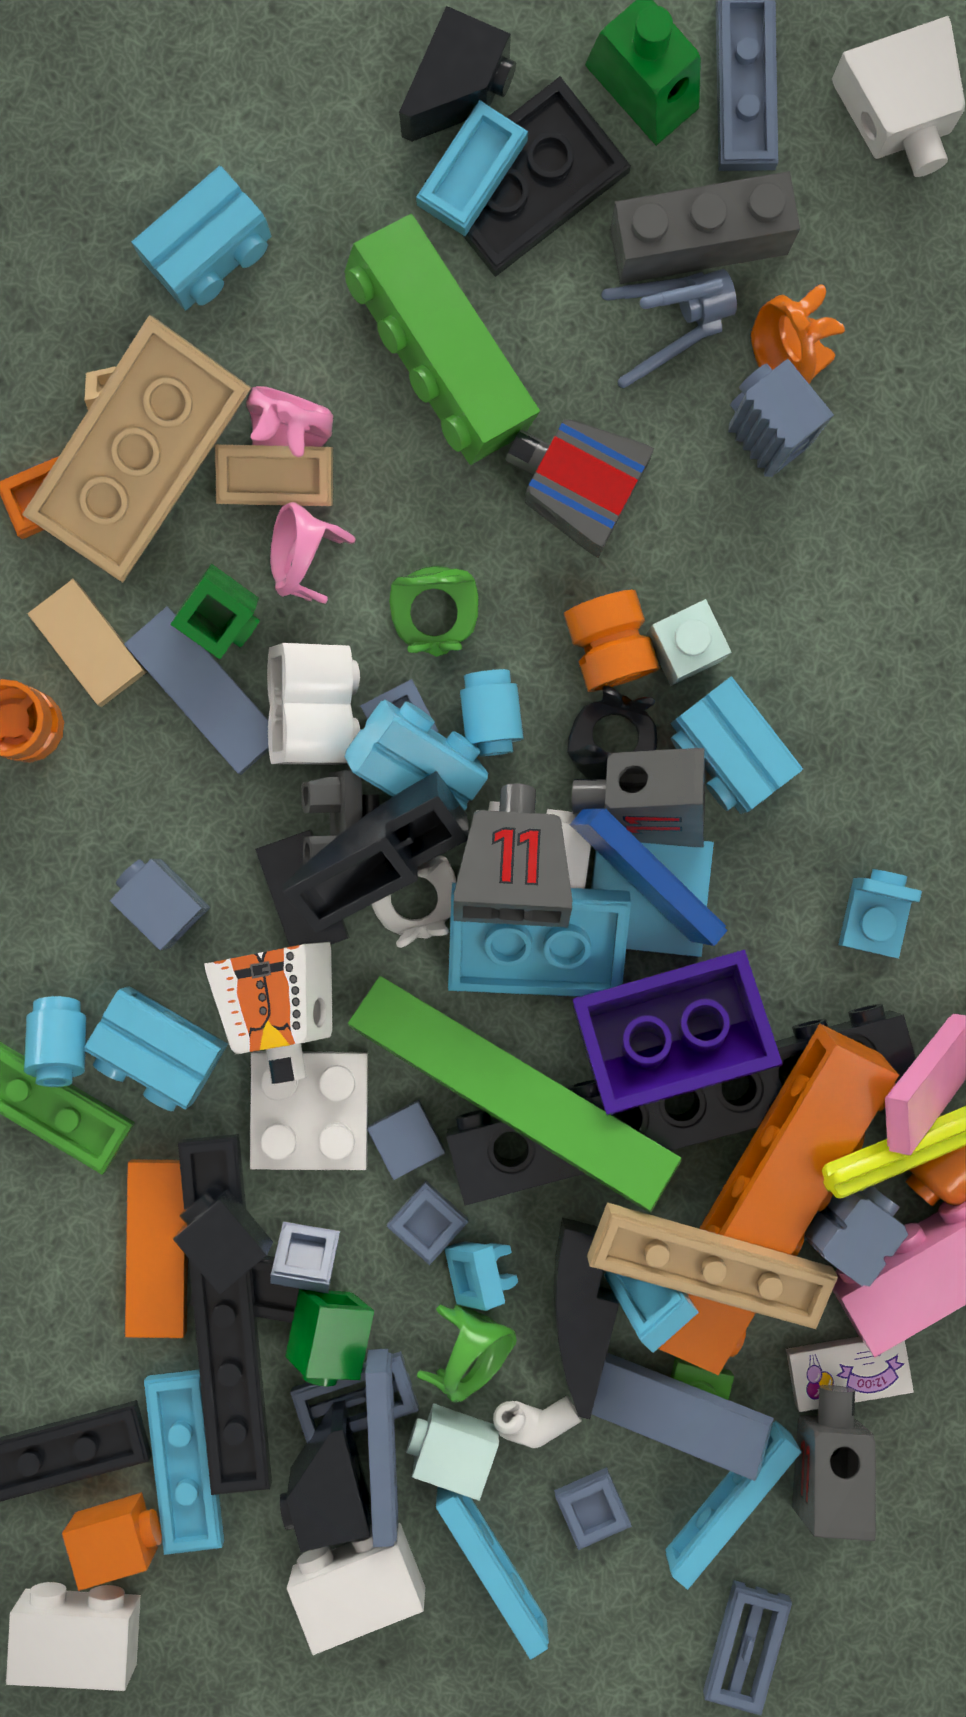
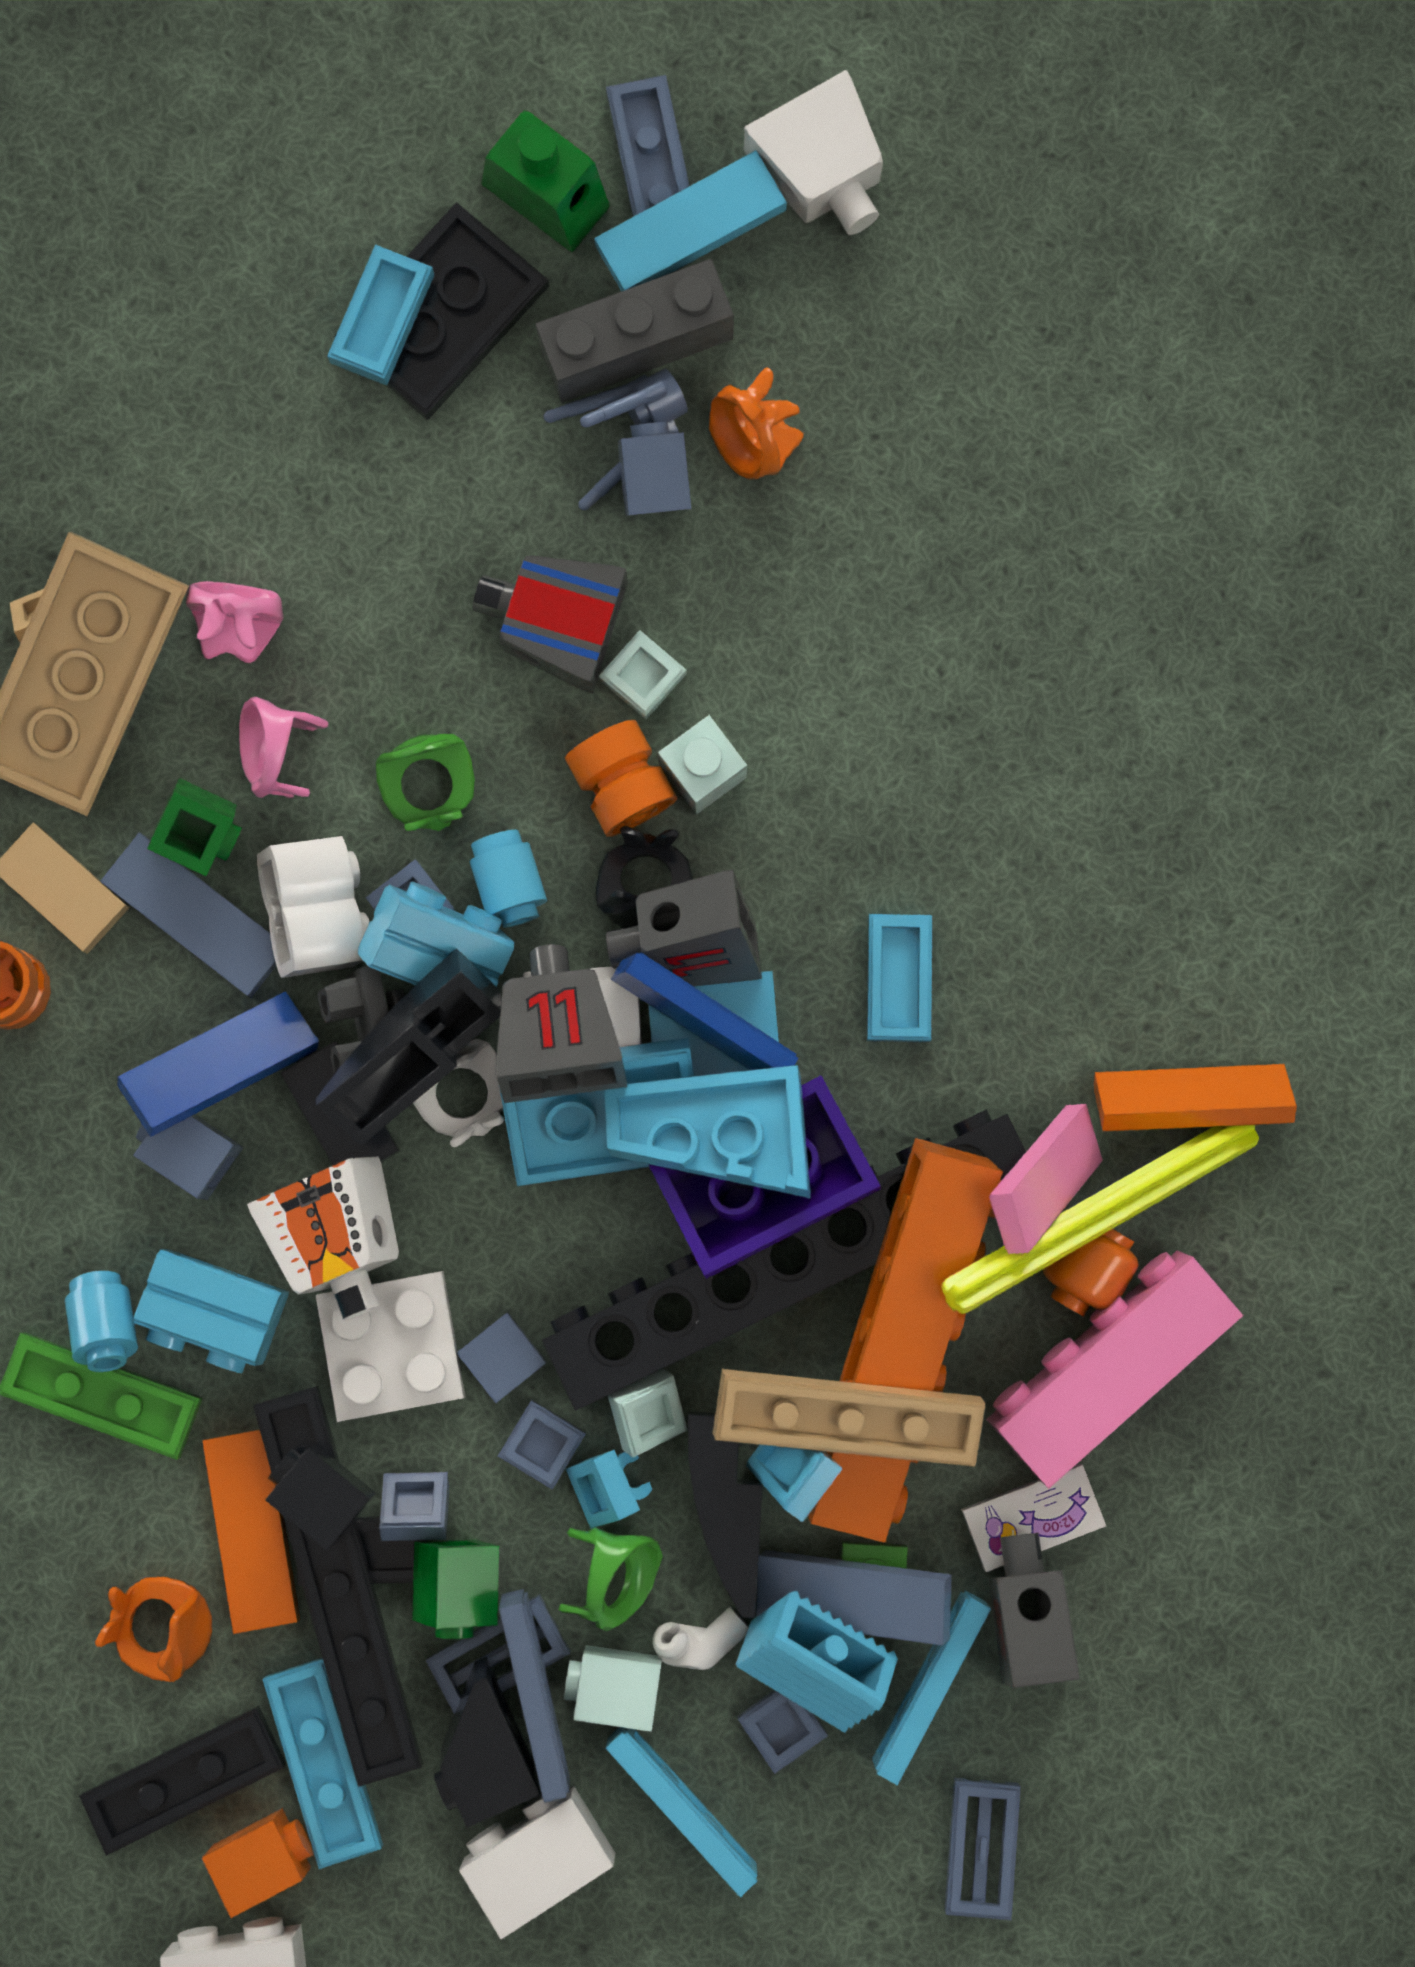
camera: 10 degrees left, 5 degrees down
(84, 1329) = (188, 1627): none -> orange piece
(199, 831) = (217, 1063): none -> blue tile
(204, 239) = (111, 441): medium azure brick -> none
(273, 475) = (229, 672): tan tile -> none
(439, 339) = (379, 499): bright green brick -> none
(460, 67) = (346, 218): black slope -> none
(516, 1094) = (606, 1278): bright green tile -> none
(527, 1217) = (647, 1412): none -> light aqua tile
(638, 1468) = (817, 1661): none -> medium azure brick
(644, 979) = (716, 1126): none -> medium azure wing
(647, 549) = (642, 674): none -> light aqua tile
(696, 361) = (654, 470): none -> sand blue brick
(738, 747) = (774, 865): medium azure brick -> none
(774, 135) = (691, 223): none -> medium azure tile
(777, 416) = (749, 511): sand blue brick -> none
(825, 869) = (899, 978): none -> medium azure tile
(857, 1233) = (996, 1350): sand blue brick -> none
(878, 913) = (964, 1013): medium azure bracket -> none

